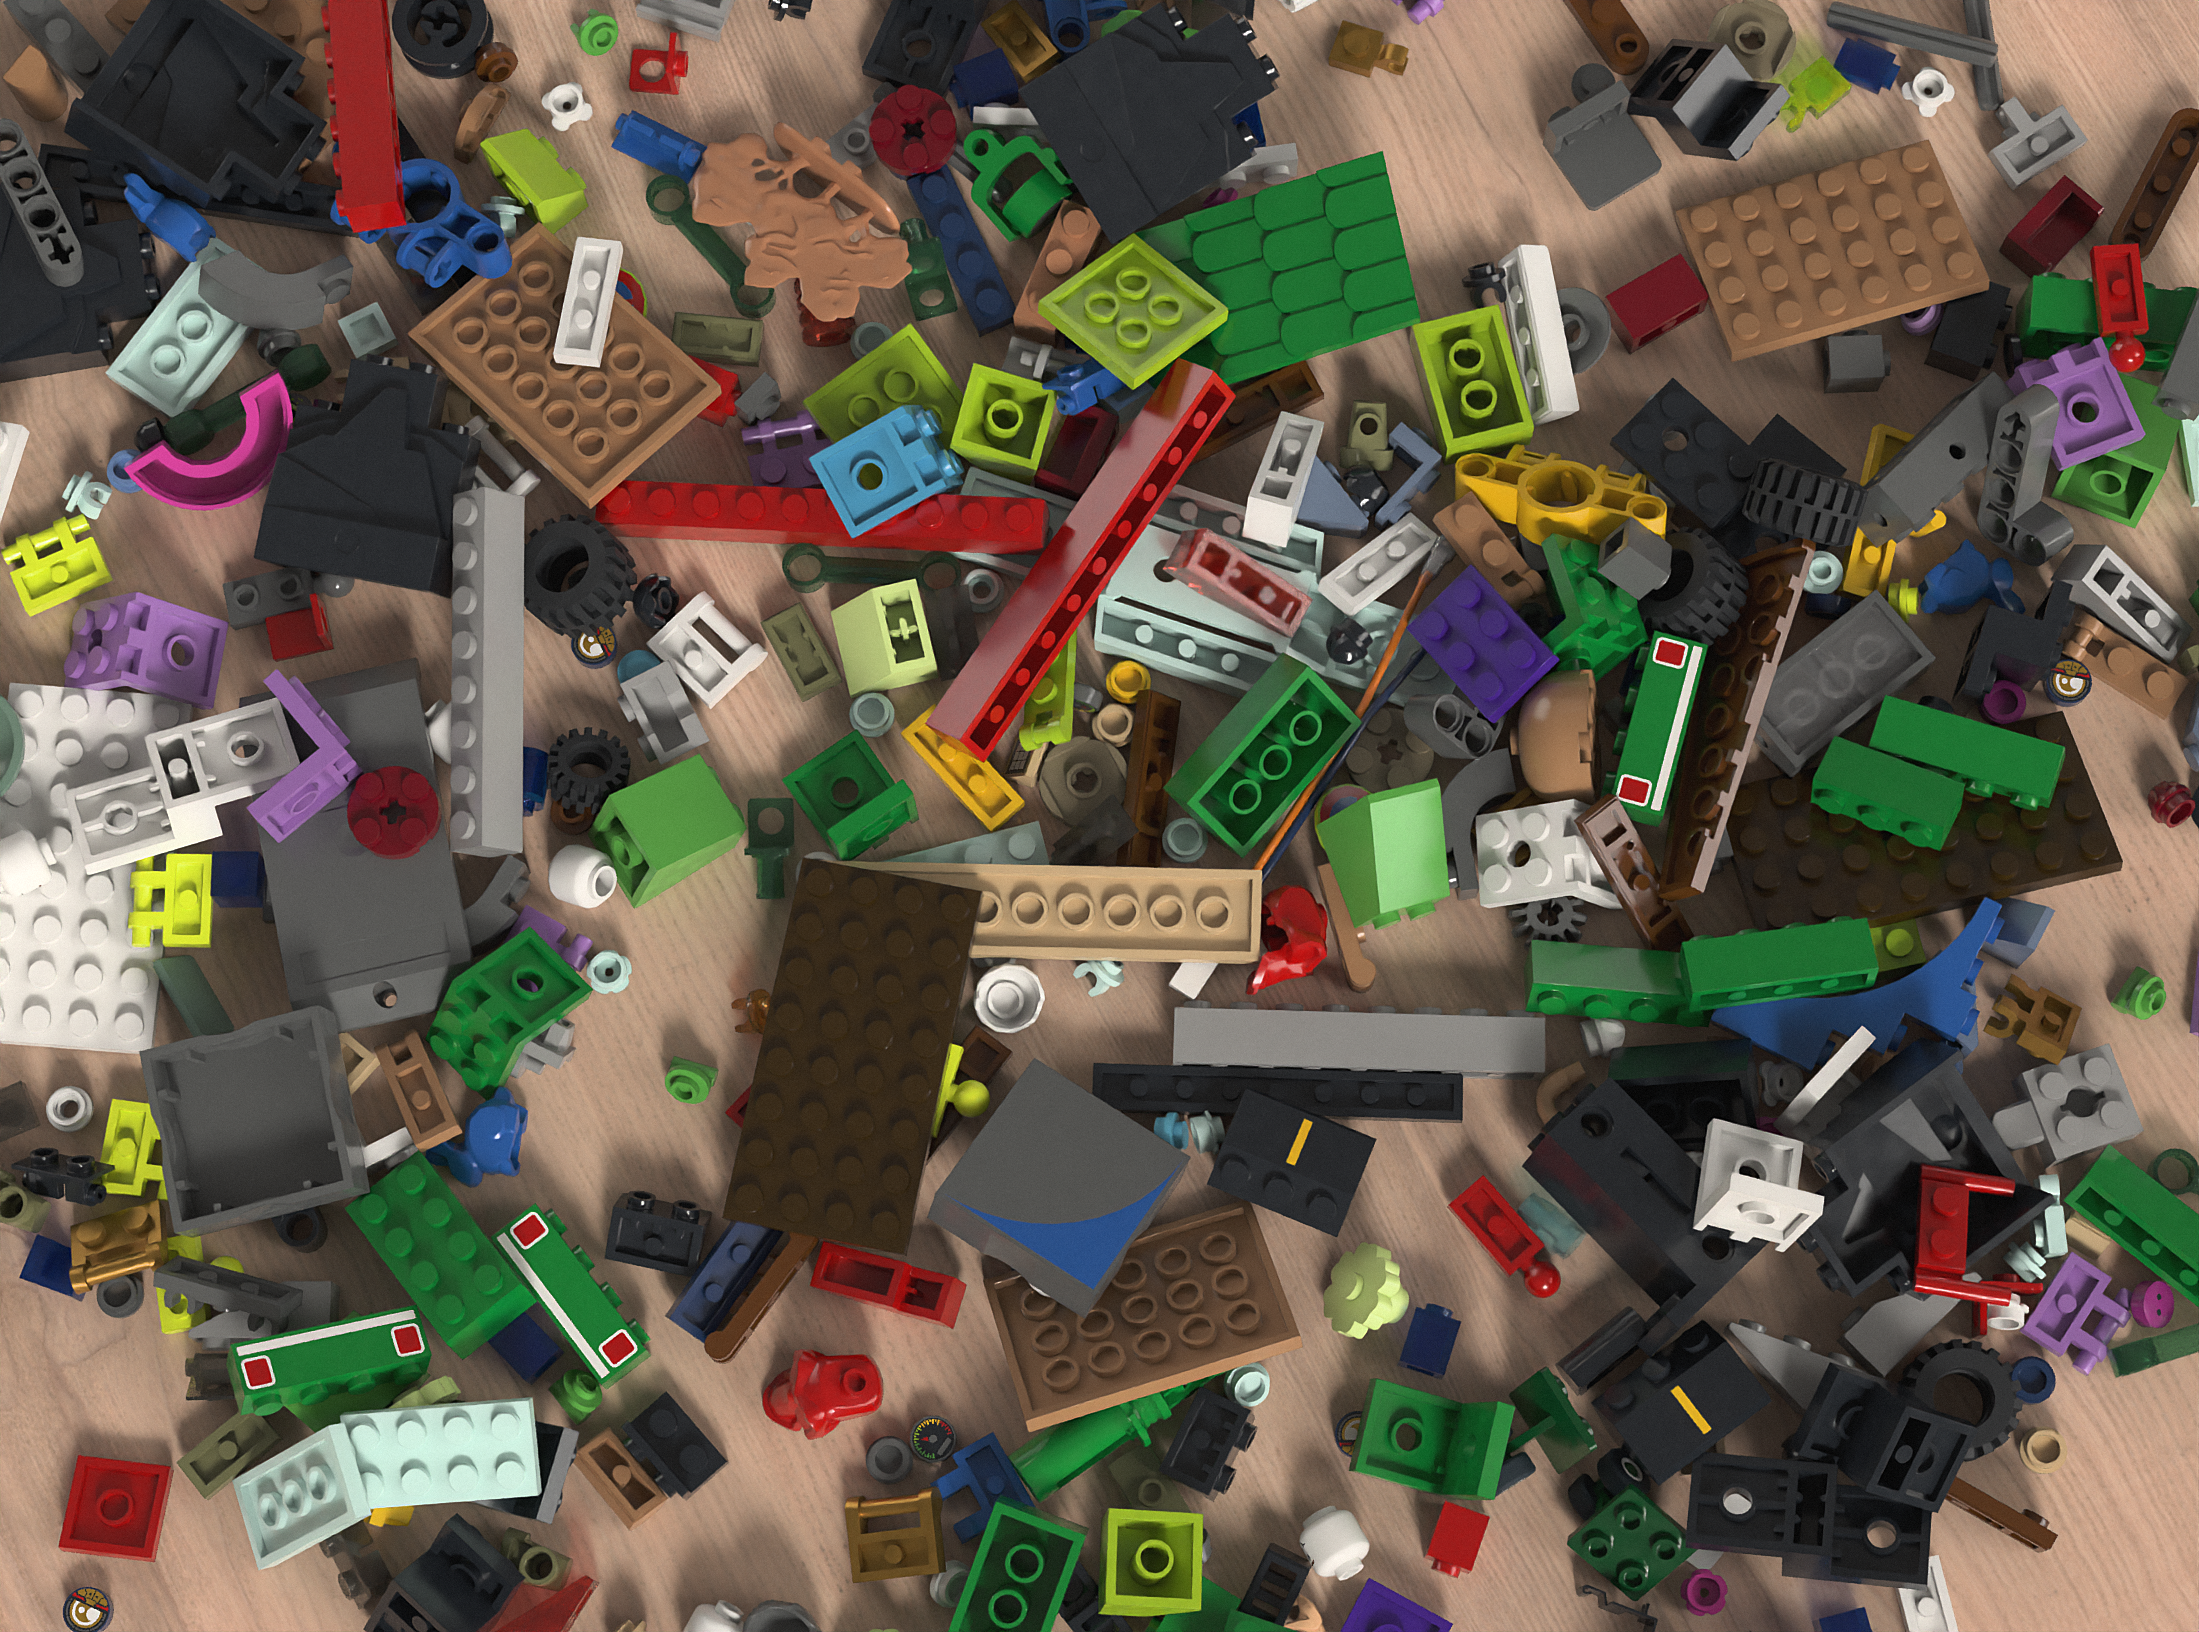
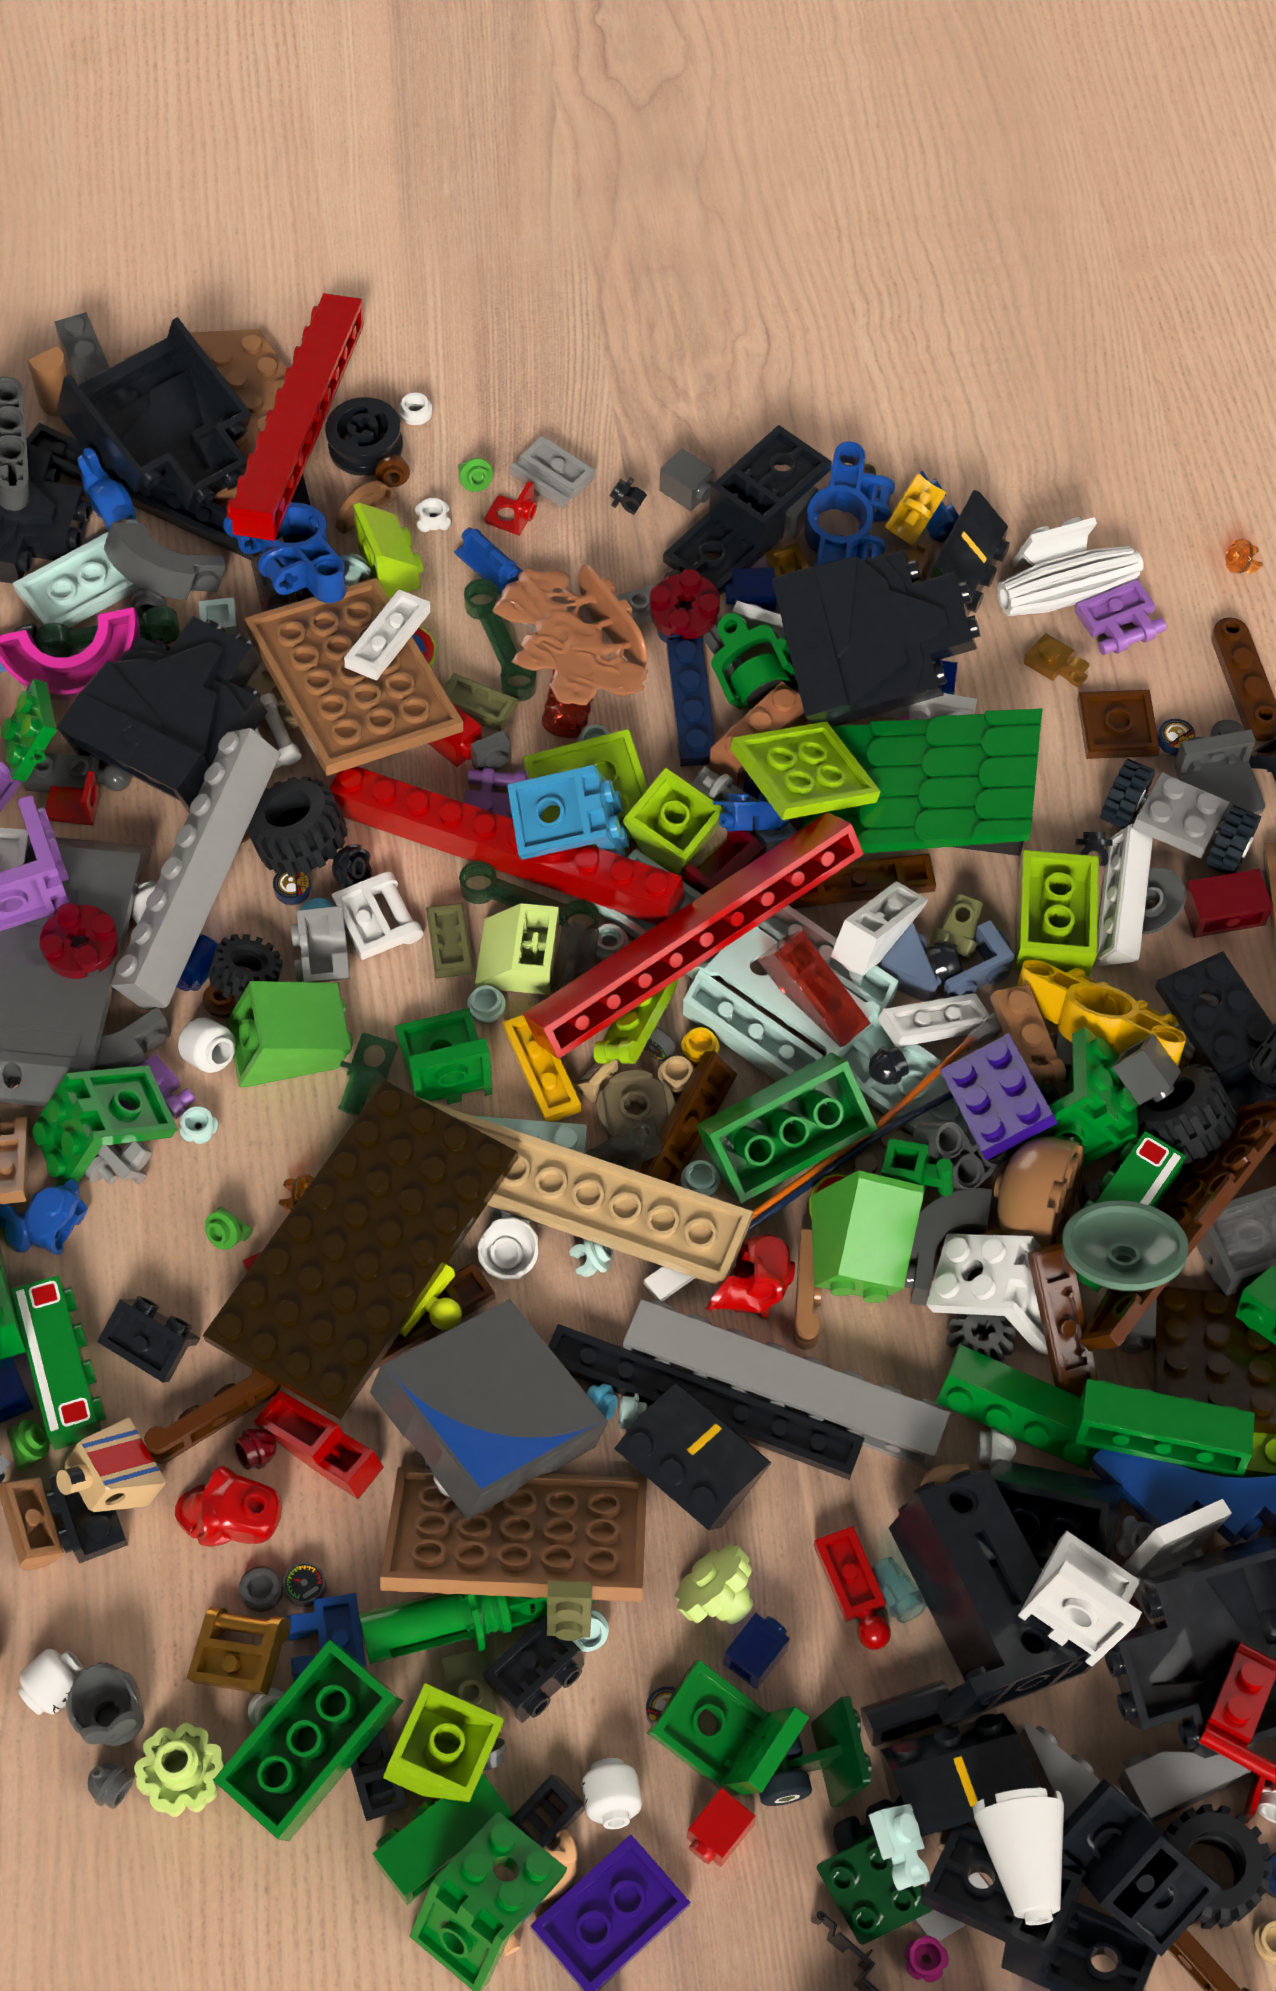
camera: 15 degrees right, 15 degrees down
(216, 564) = (29, 730): none -> green plate
(684, 1395) = (112, 1470): none -> tan torso
(722, 1278) = (185, 1388): dark blue plate -> none
(823, 1314) = (255, 1448): none -> dark red plate
(928, 270) = (656, 703): clear green bracket -> none
(1229, 1380) = (569, 1609): none -> olive plate
(1412, 758) = (912, 1164): none -> green brick
(1462, 110) = (1118, 724): none -> reddish brown tile
(1533, 105) = (1173, 733): none -> tile
(1573, 215) = (1180, 816): none -> plate
(1645, 1497) = (900, 1840): none -> light aqua plate
(1673, 764) = (1125, 1245): none -> sand green dish
(1777, 1465) = (1026, 1849): none -> white cone

